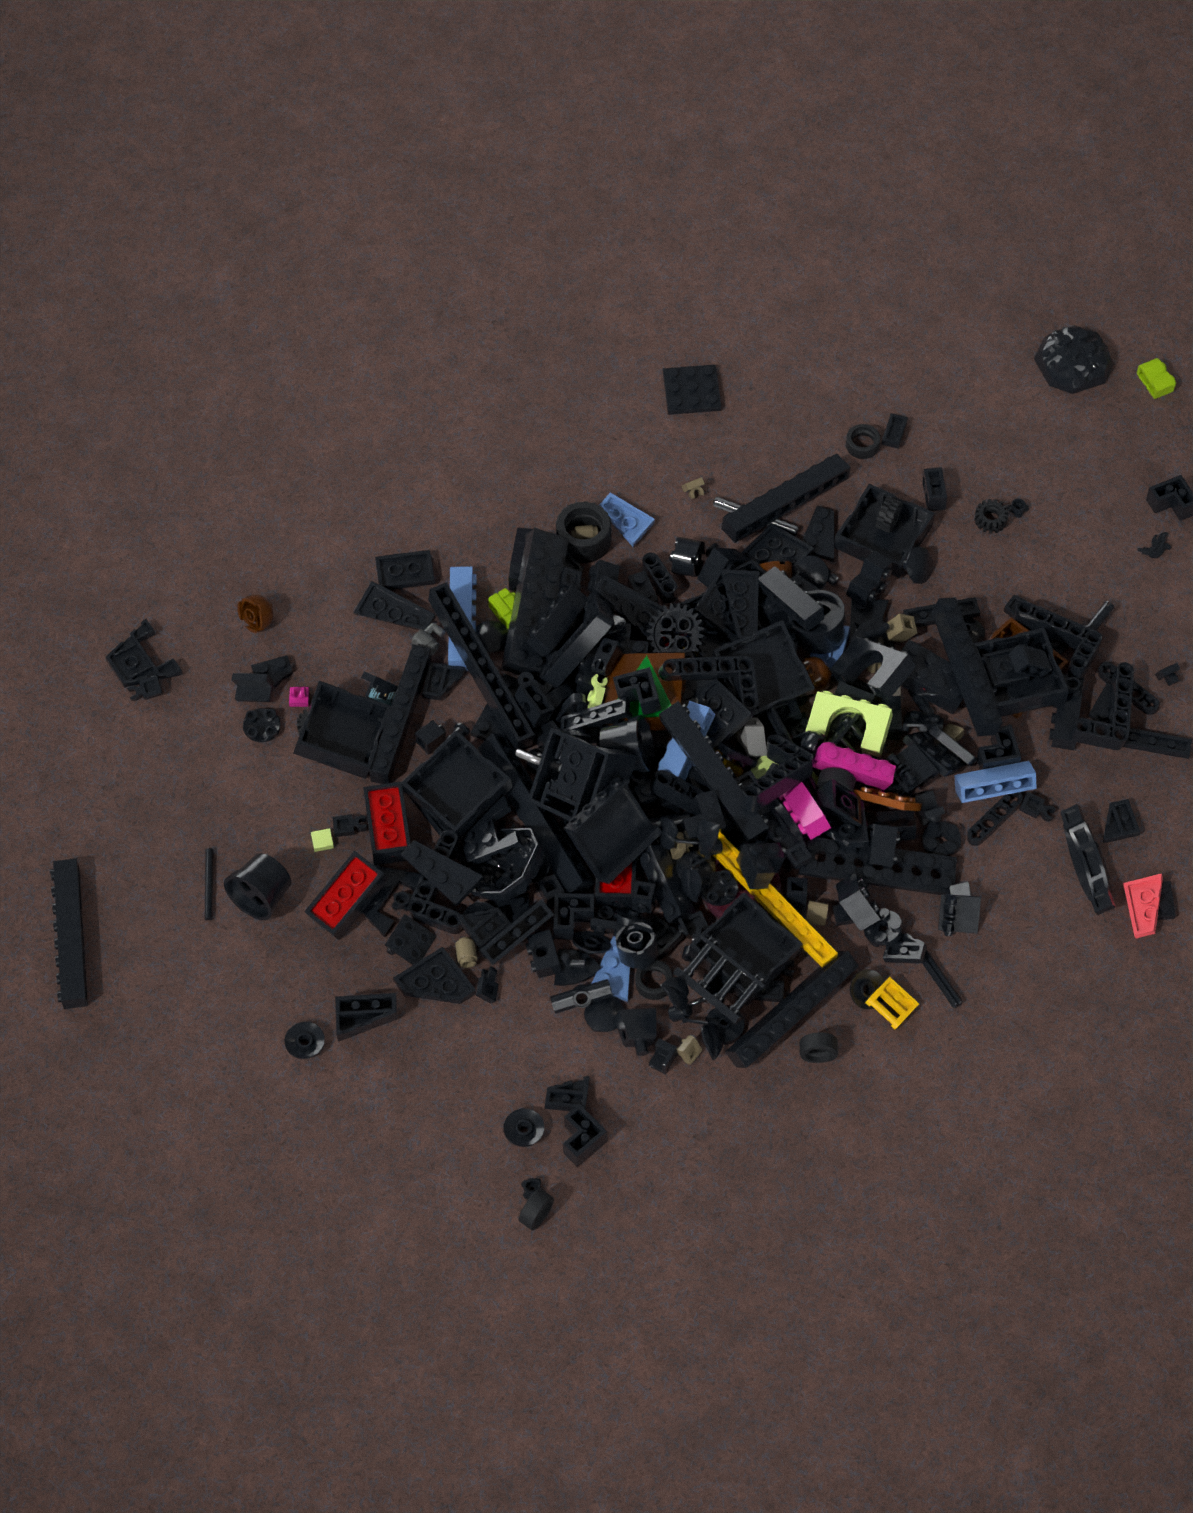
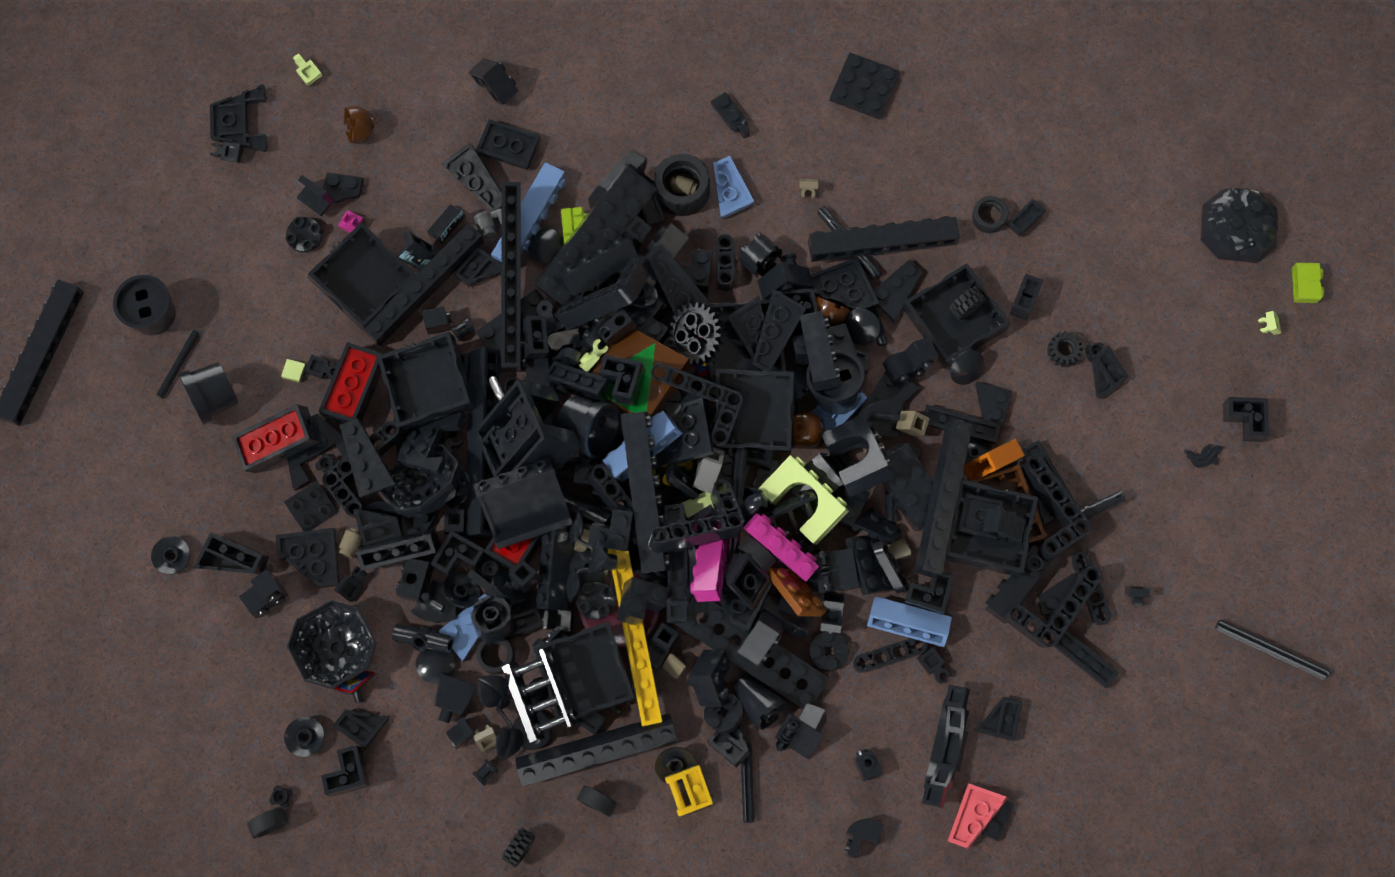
camera: 30 degrees right, 15 degrees up
(145, 832) = (130, 299): none -> black piece
(180, 591) = (307, 71): none -> yellowish green plate
(361, 520) = (495, 80): none -> black brick
(388, 658) = (446, 223): none -> black panel
(415, 1026) = (264, 594): none -> black brick
(506, 1033) = (331, 644): none -> black rock
(539, 1064) = (353, 686): none -> shield
(589, 461) = (731, 114): none -> black hinge
(705, 1076) = (485, 772): none -> black bush
(774, 1118) = (518, 847): none -> black tyre
(908, 903) = (758, 702): none -> black cone
(956, 583) = (992, 402): none -> black wing
(988, 622) = (993, 460): none -> orange slope
(1031, 910) = (867, 765): none -> black brick
(1037, 516) = (1107, 372): none -> black wing
(1060, 962) = (862, 830): none -> black brick
(1147, 421) = (1272, 323): none -> yellowish green tile

